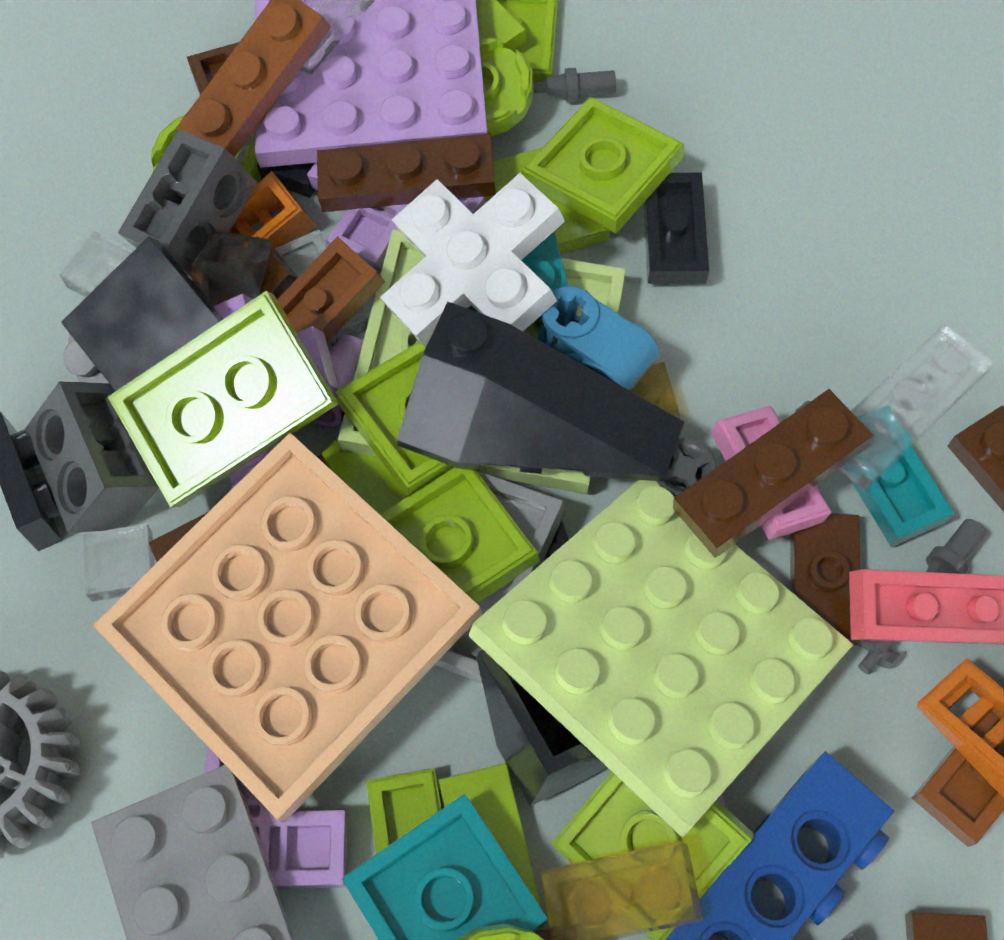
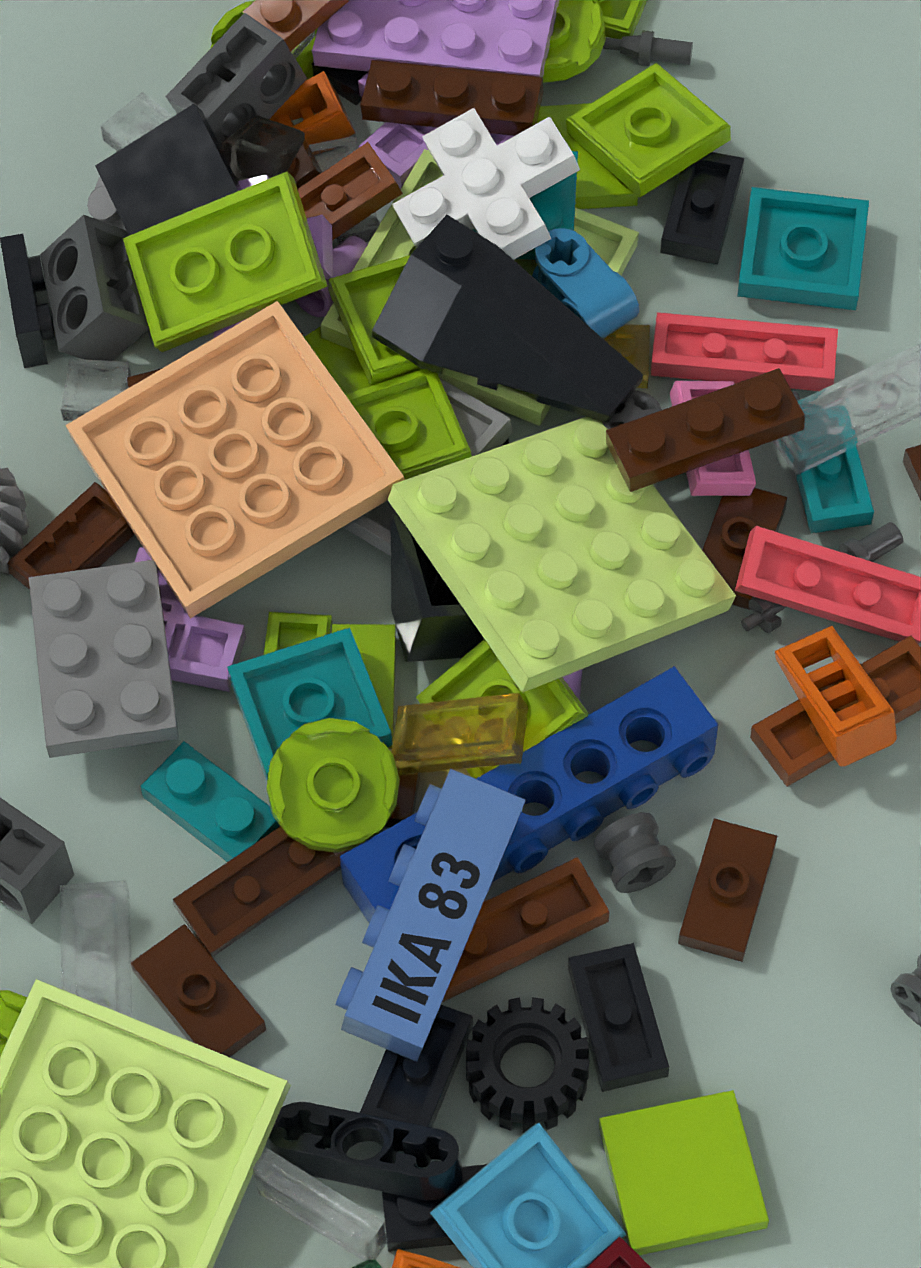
camera: 15 degrees right, 5 degrees down
(130, 754) = (75, 540): none -> reddish brown plate
(765, 369) = (742, 350): none -> coral plate
(785, 250) = (803, 248): none -> teal plate

